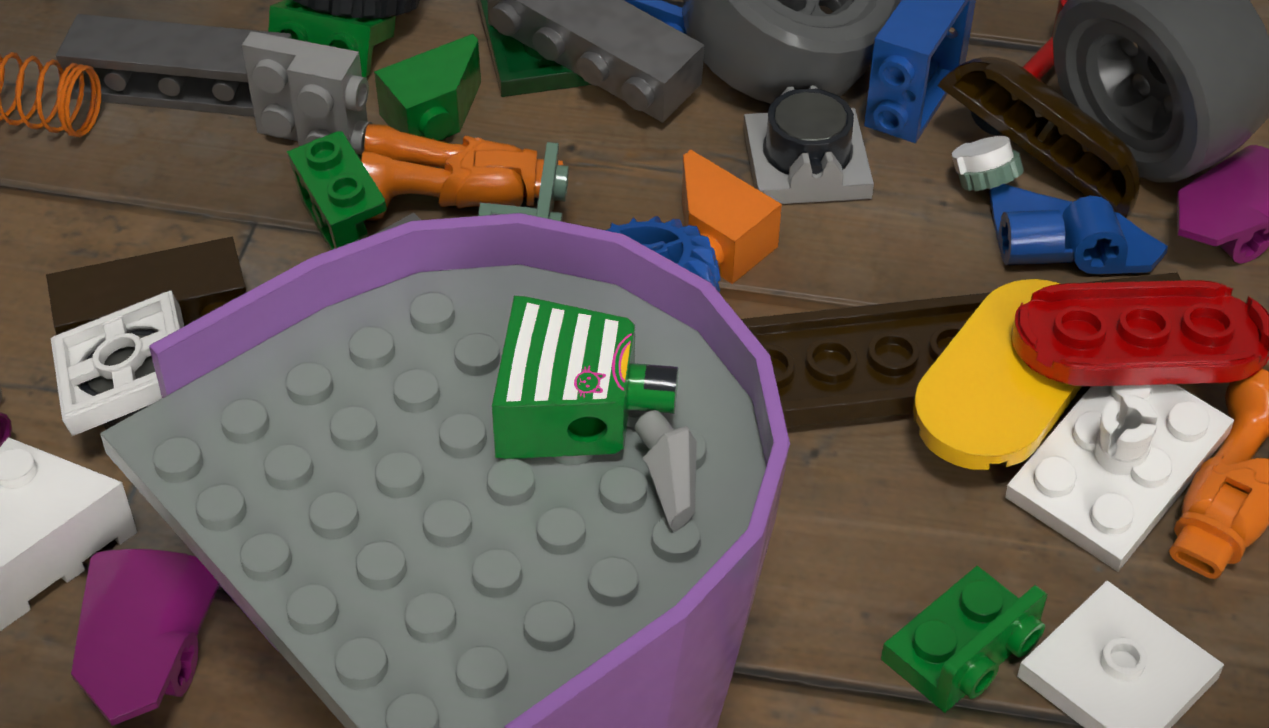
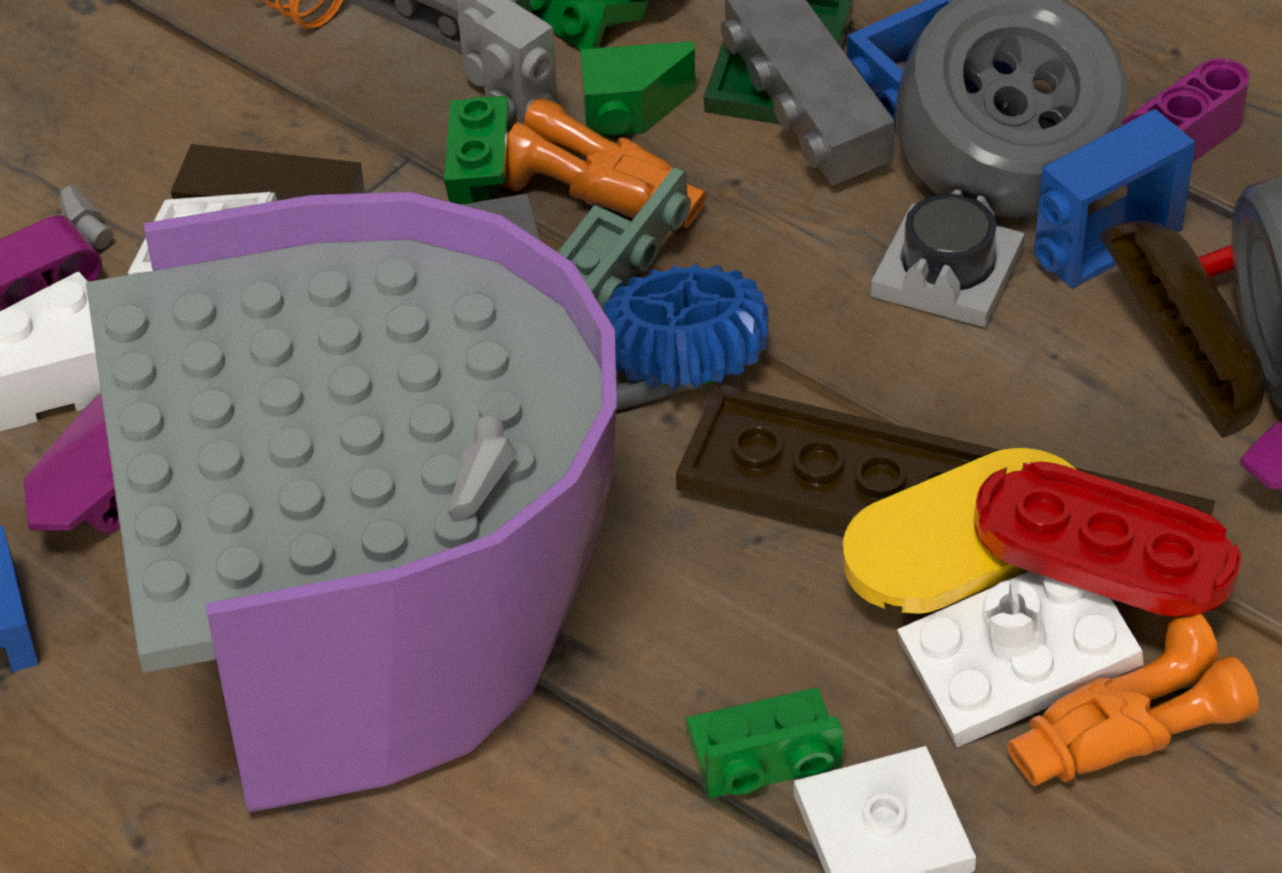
camera: 30 degrees right, 0 degrees up
(571, 382) = (441, 369): green torso -> none
(731, 213) = (814, 298): orange slope -> none
(987, 163) = (1110, 330): piece -> none
(1055, 230) = (1151, 426): blue panel -> none

